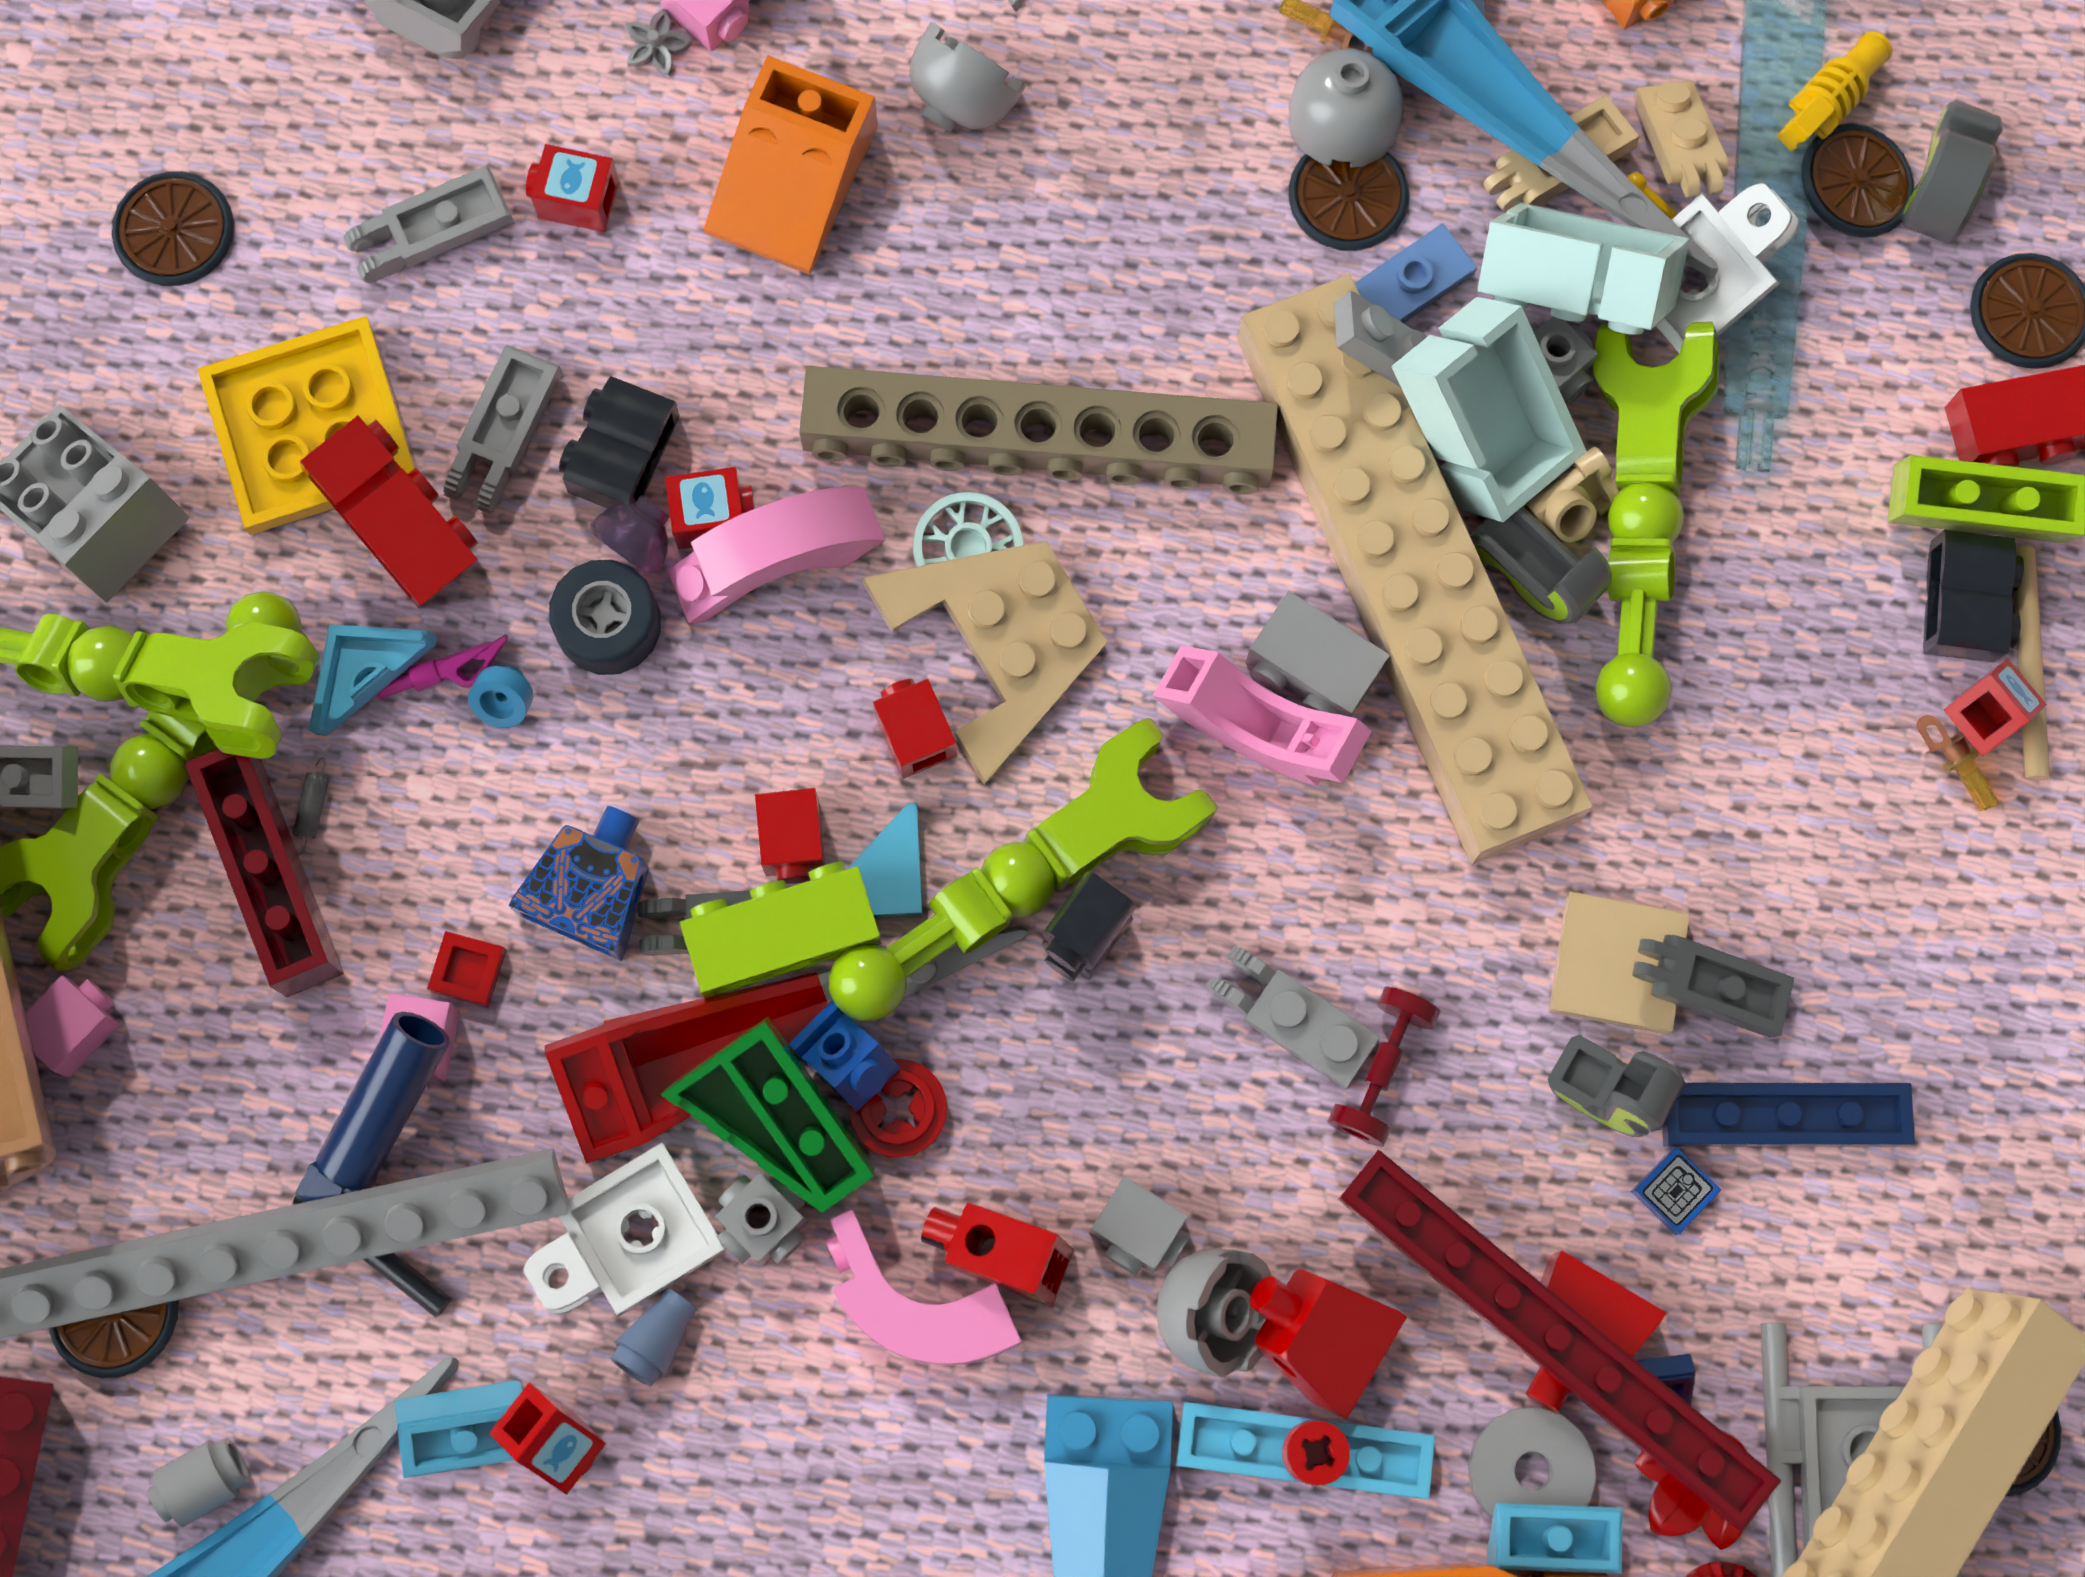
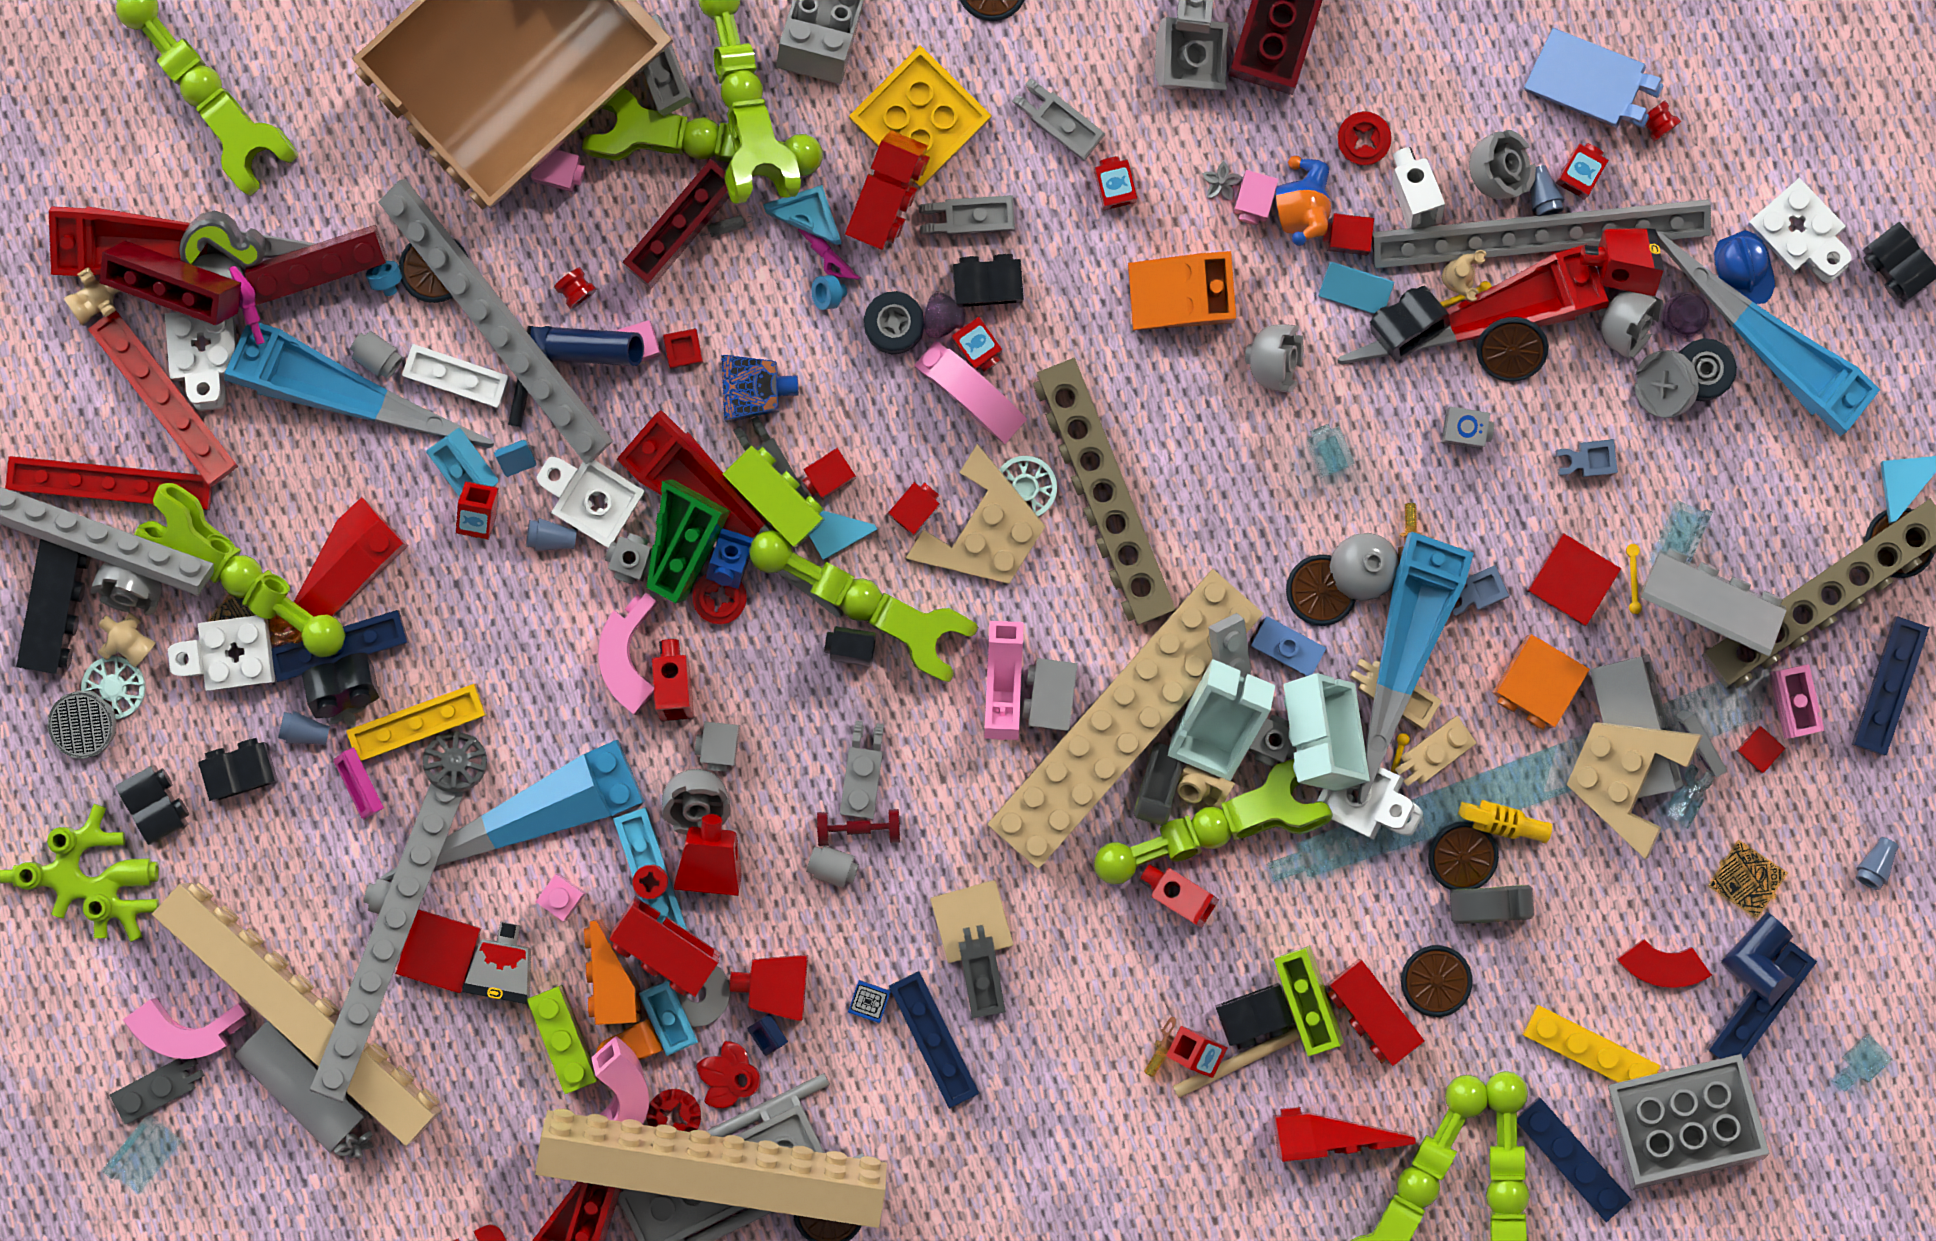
camera: 65 degrees right, 10 degrees up
(80, 1401) = (384, 277): none -> dark azure tile
(273, 1092) = (575, 288): none -> red wheel
(308, 1364) = (455, 376): none -> white plate
(495, 1331) = (515, 458): none -> dark azure slope
(1144, 76) = (1329, 450): none -> clear light blue brick
(1429, 1138) = (832, 866): none -> light grey brick
(1444, 1482) = (664, 948): none -> red piece
(1560, 1341) = (761, 972): dark red tile -> none
(1616, 1094) = (902, 944): dark grey animal -> none
(1753, 597) = (1191, 903): none -> torso

